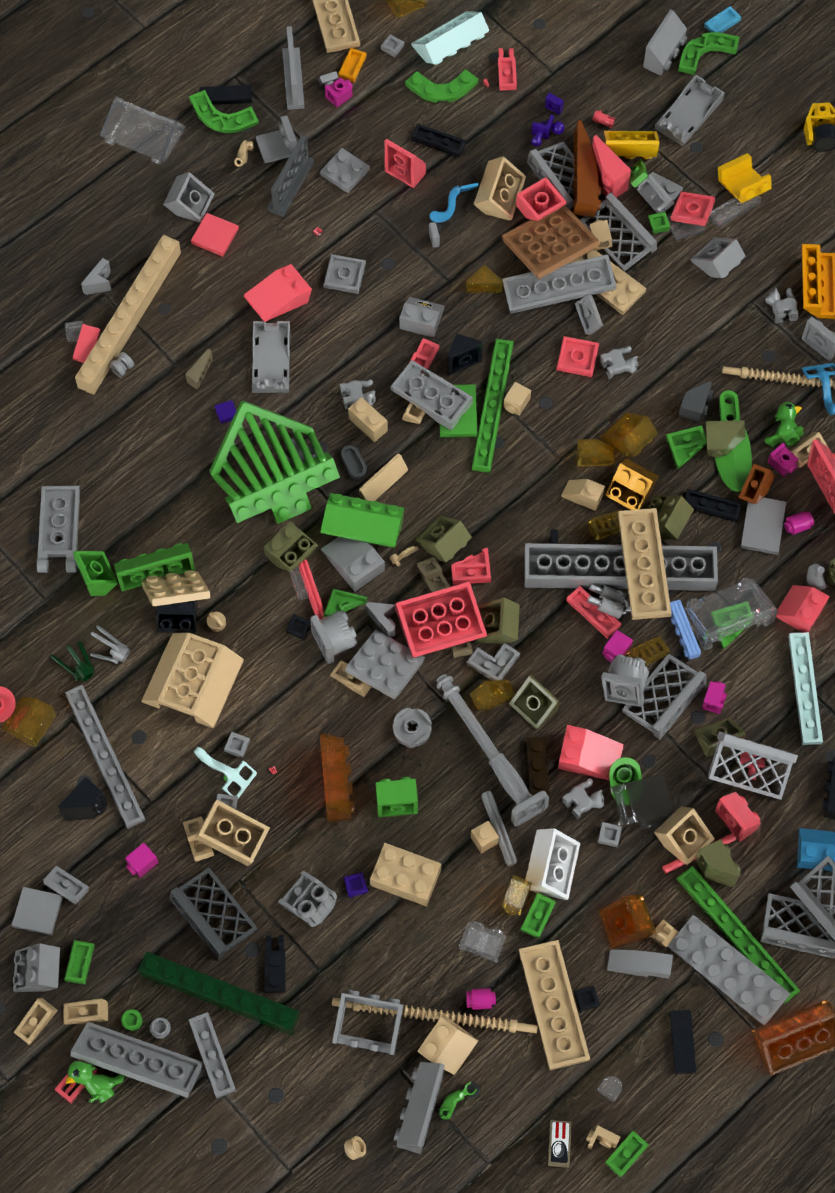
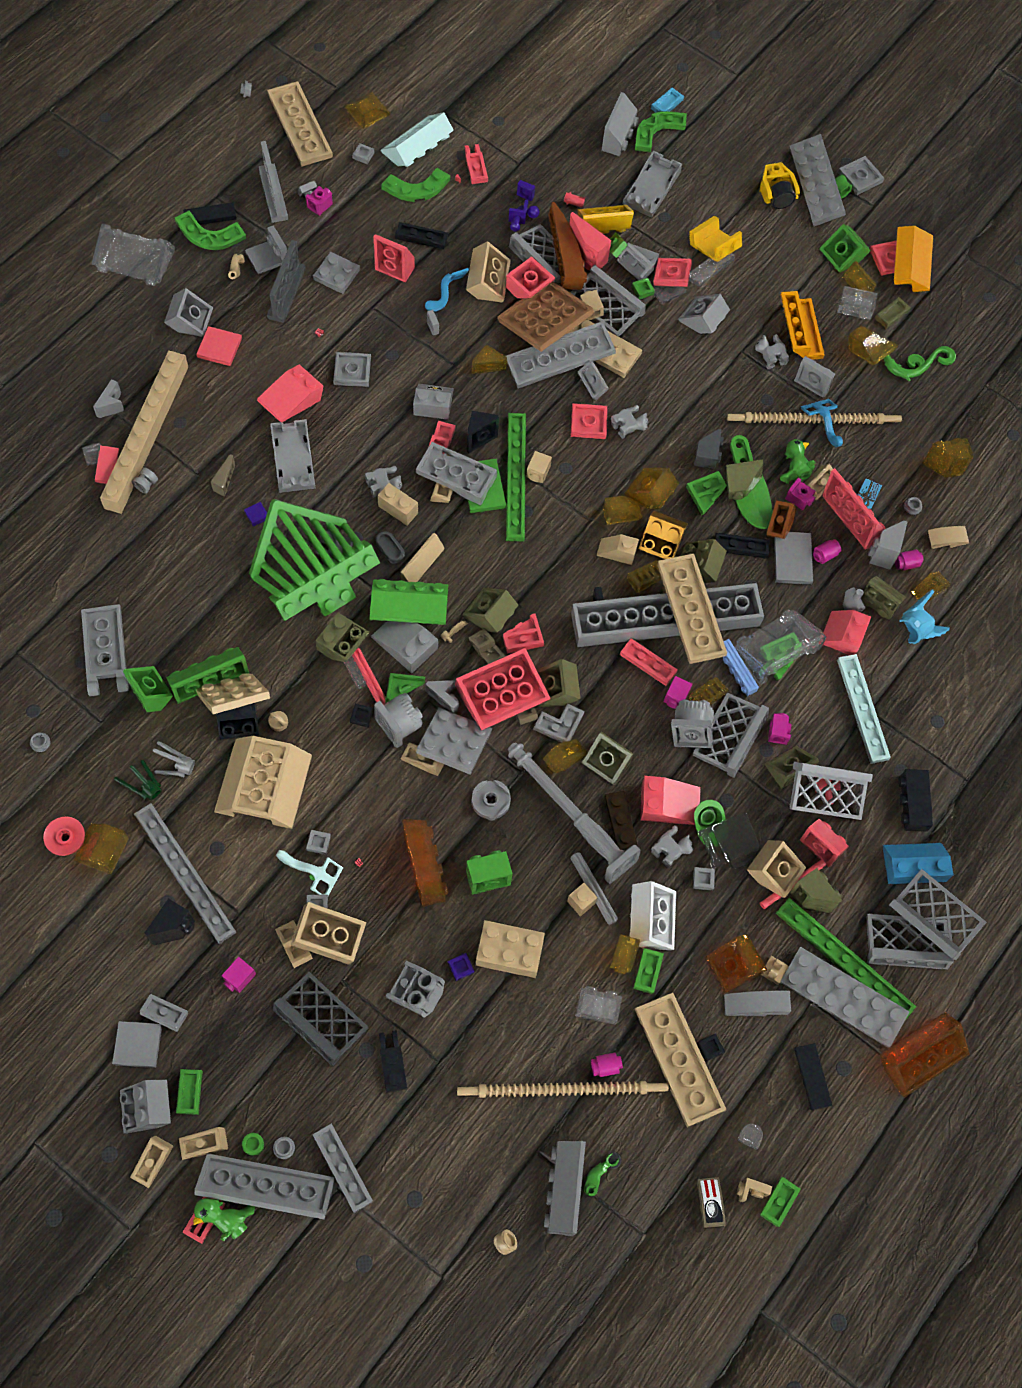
camera: 15 degrees left, 0 degrees up
(219, 993) = (339, 1101): dark green brick -> none
(352, 65) = (328, 174): light orange tile -> none
(372, 1000) = (507, 1130): light grey window -> none
(448, 1045) = (582, 1119): tan slope -> none
(610, 601) = (663, 649): light grey piece -> none

